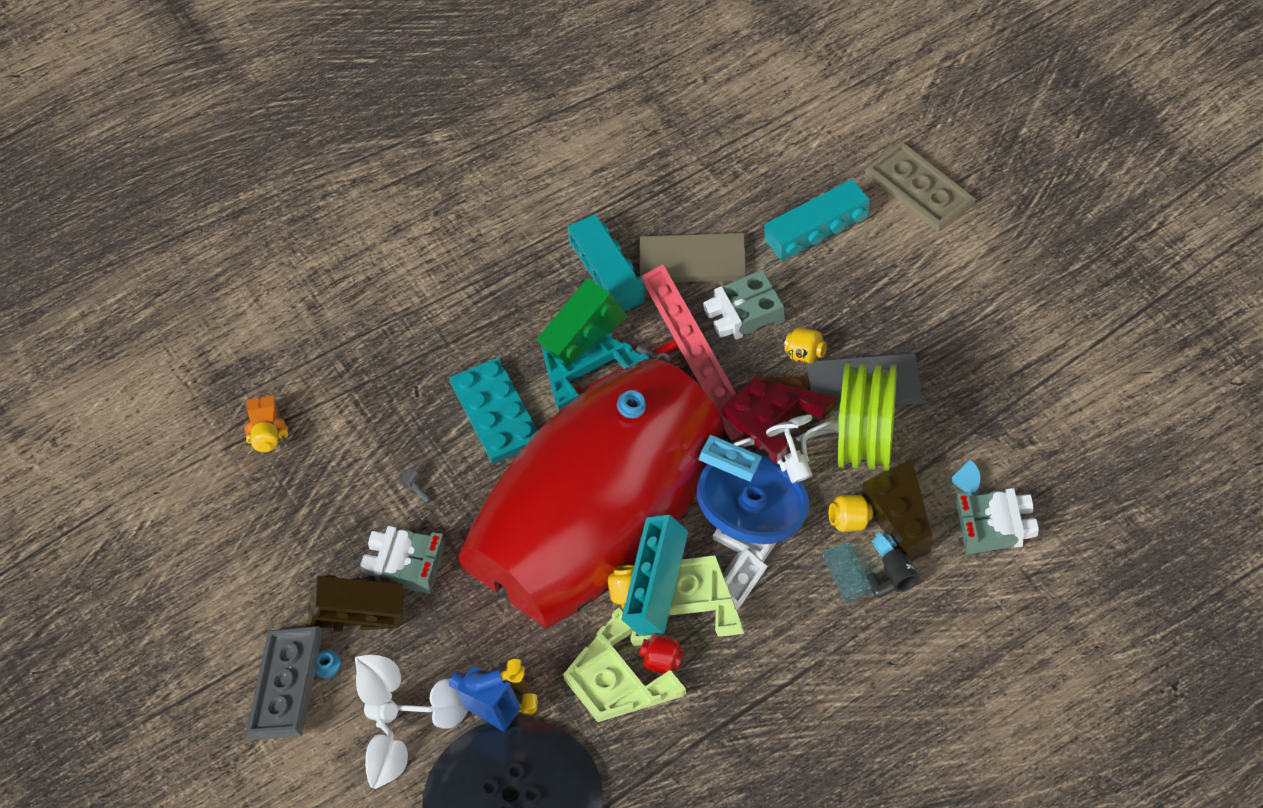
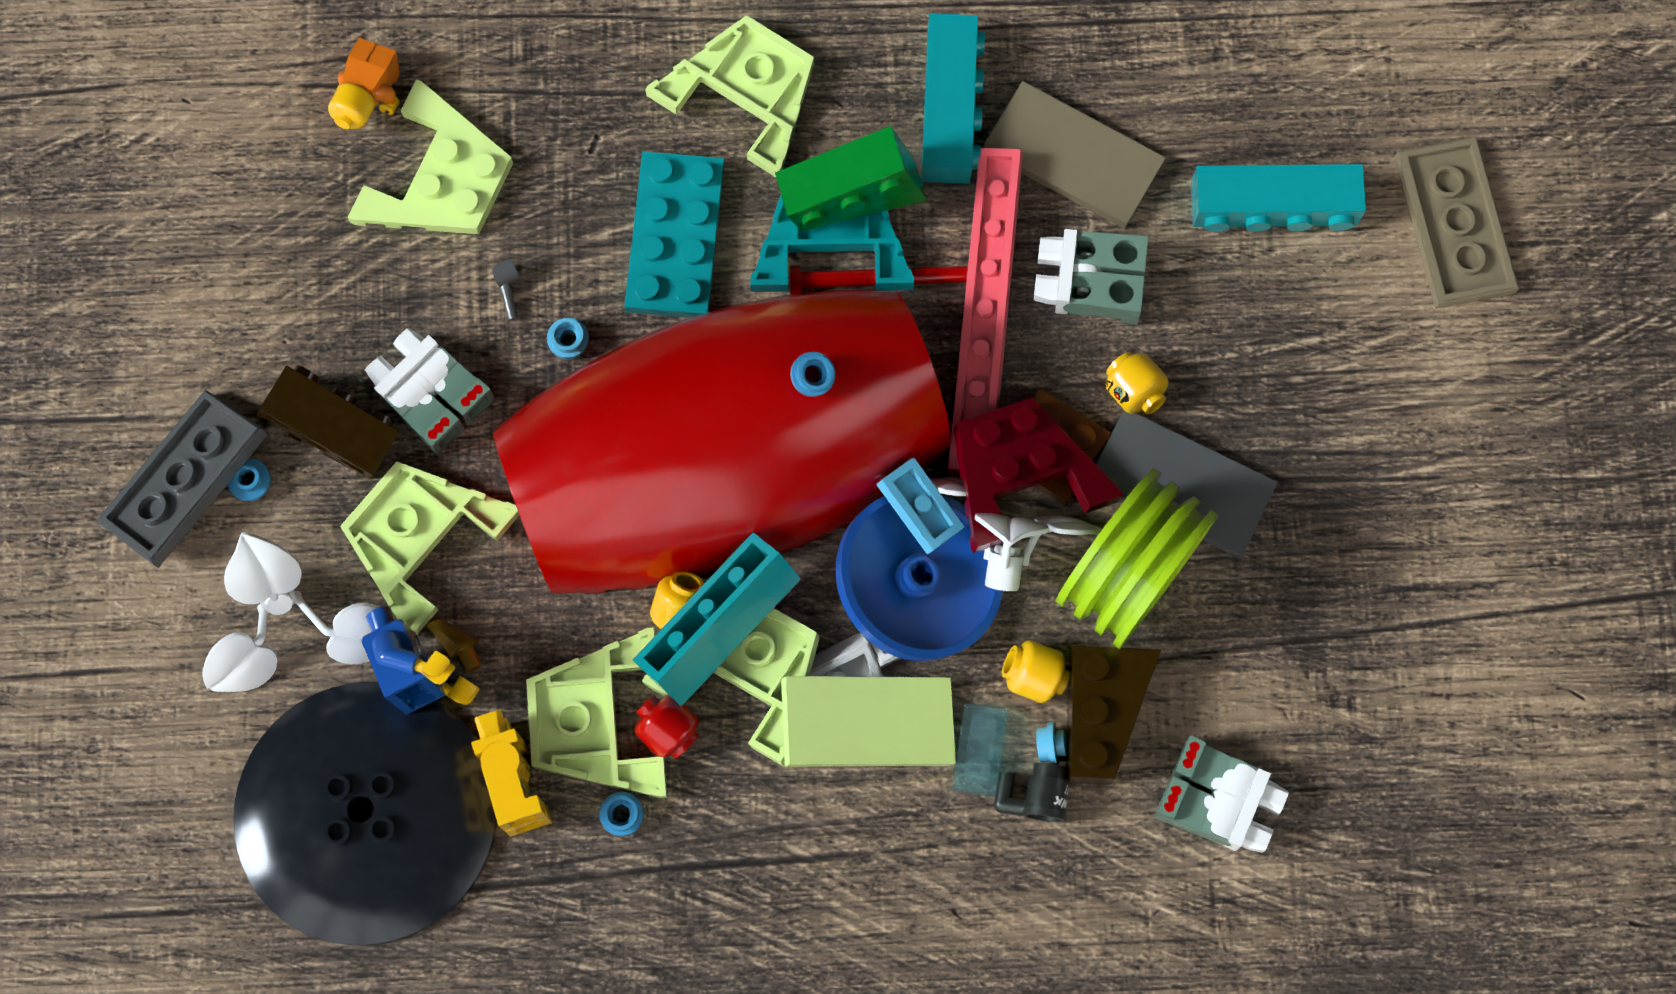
camera: 25 degrees right, 20 degrees up
(348, 449) = (454, 180): none -> yellowish green wing
(436, 631) = (405, 522): none -> yellowish green wing
(468, 485) = (560, 329): none -> medium azure plate
(486, 307) = (752, 71): none -> yellowish green wing
(597, 734) = (508, 775): none -> yellow hips
(662, 356) = (926, 282): dark grey hand -> none
(665, 708) = (617, 800): none -> dark azure plate
(775, 585) = (867, 721): none -> yellowish green tile
(968, 478) = (1227, 711): medium azure tile -> none

